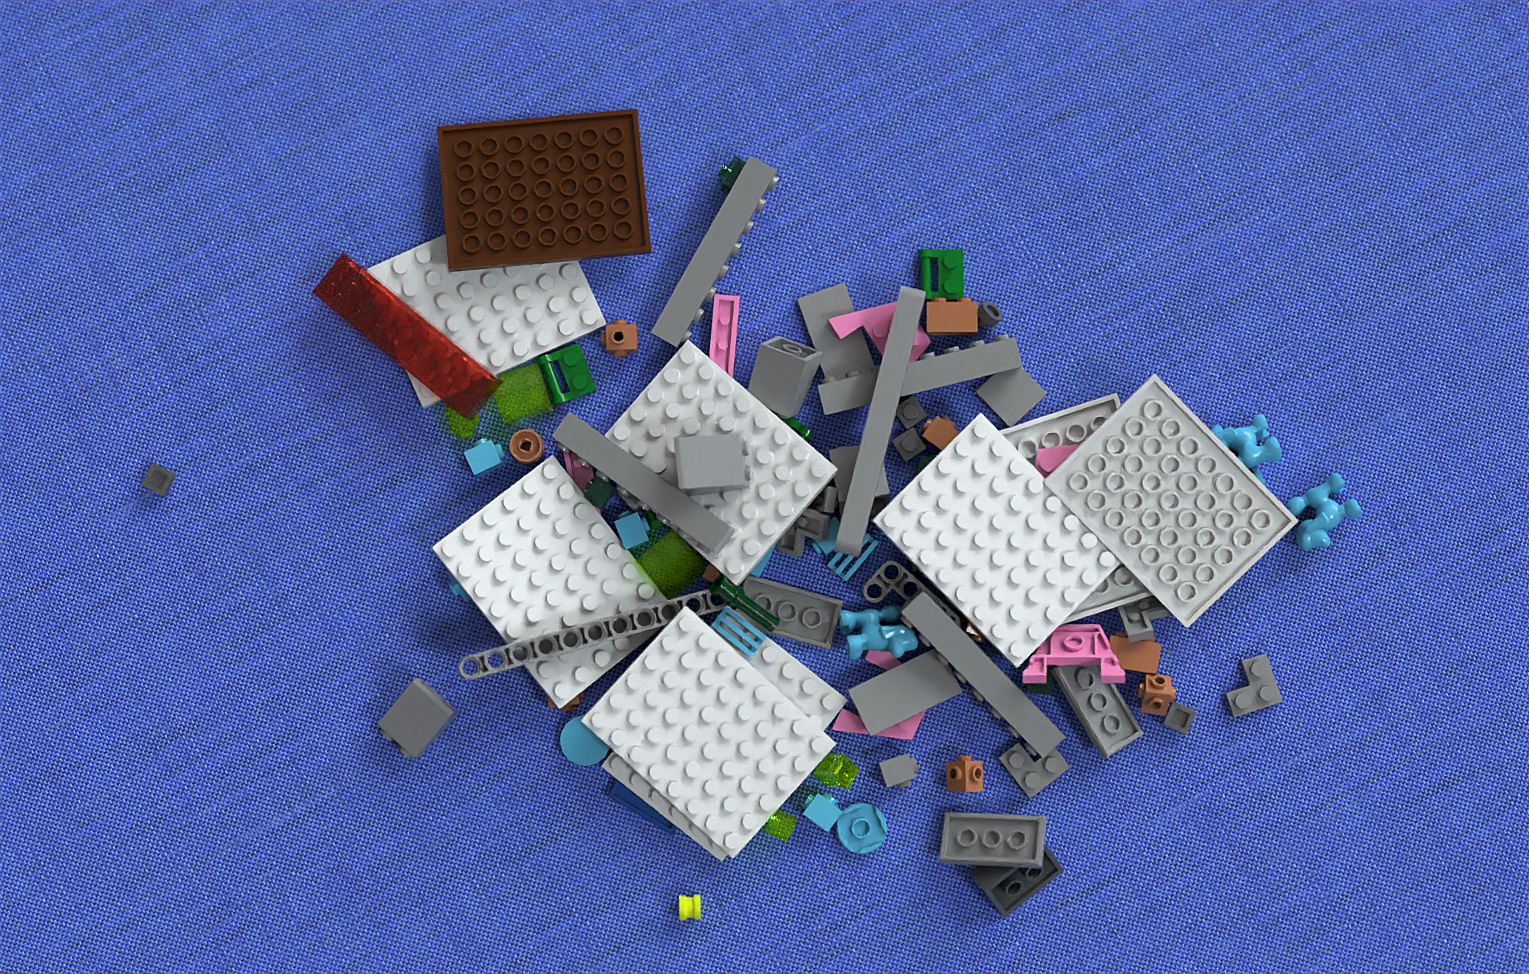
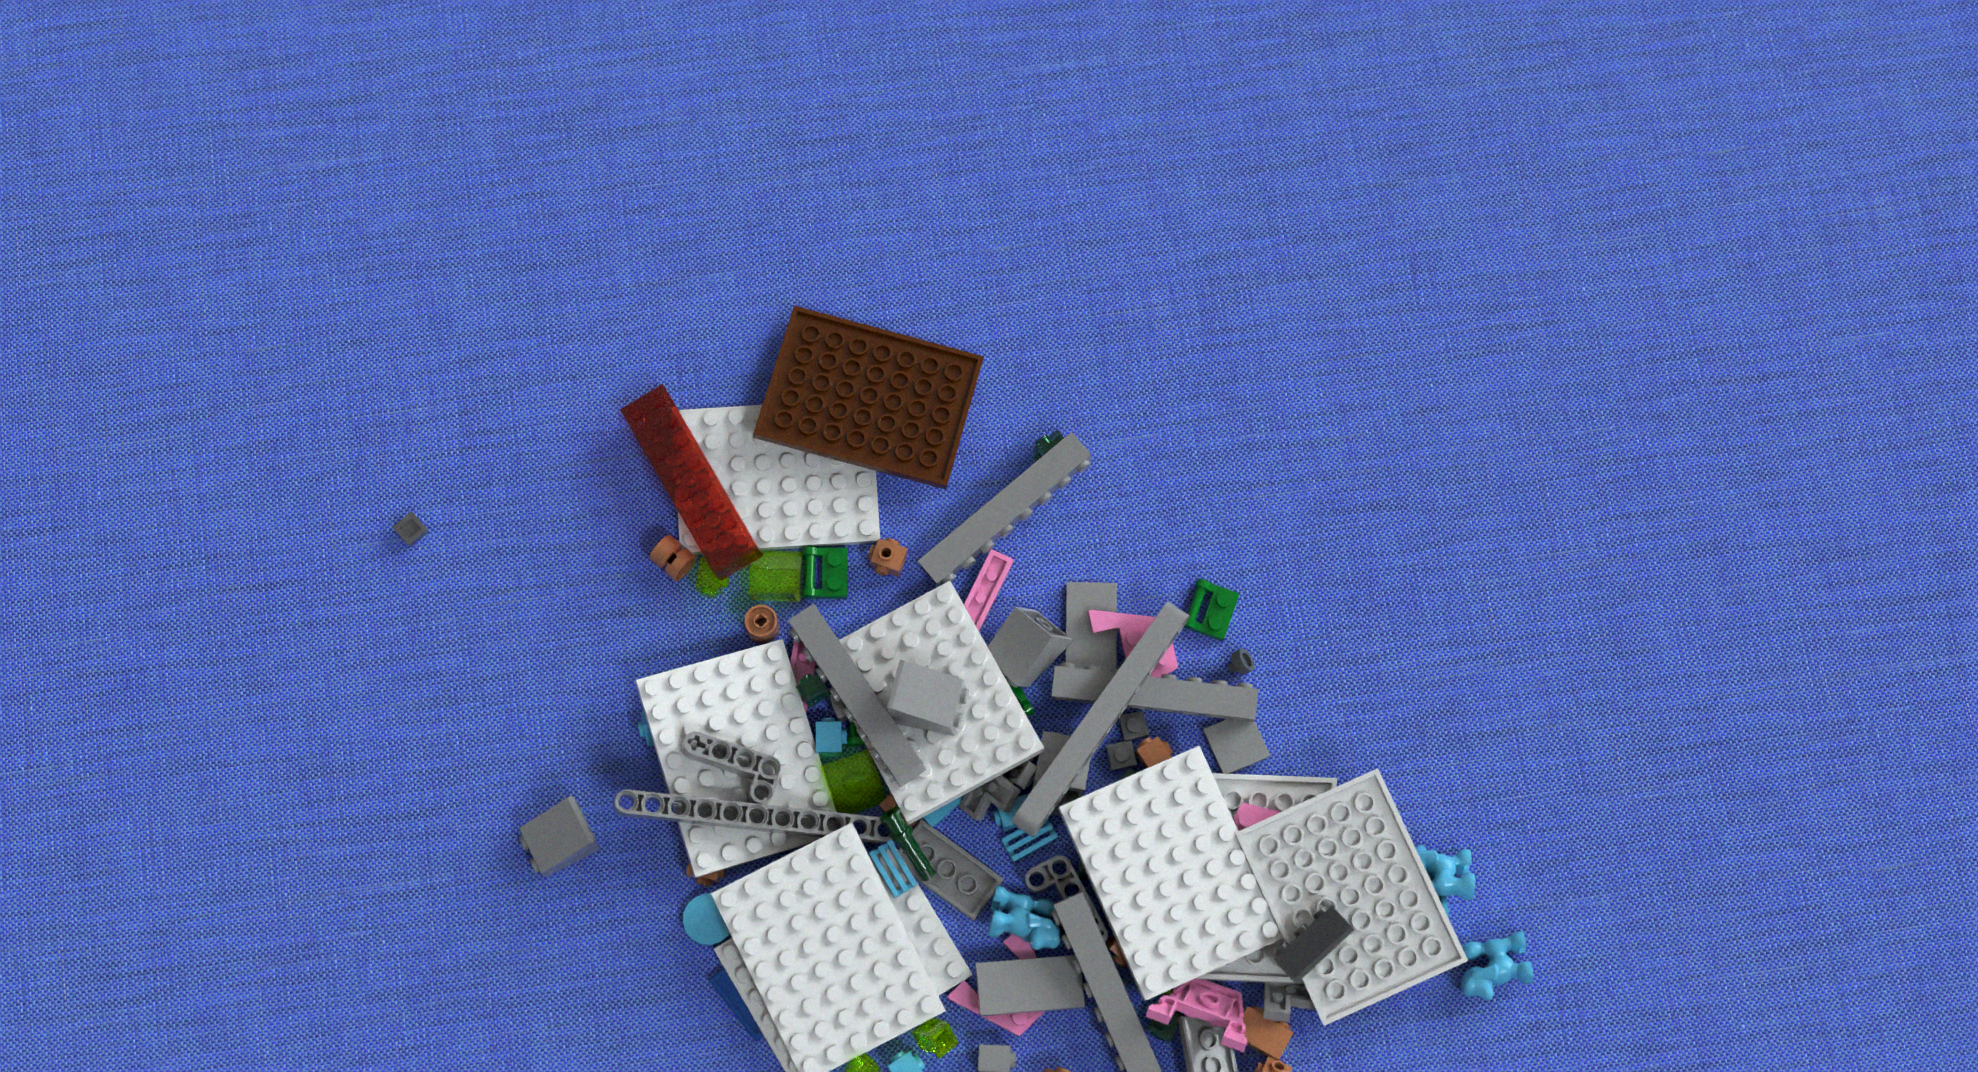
camera: 15 degrees right, 10 degrees down
(409, 413) = (666, 552): none -> nougat wheel
(484, 457) = (718, 619): medium azure brick -> none
(551, 592) = (730, 763): none -> light grey beam
(951, 318) = (1205, 652): nougat brick -> none
(1152, 559) = (1312, 943): none -> dark grey slope

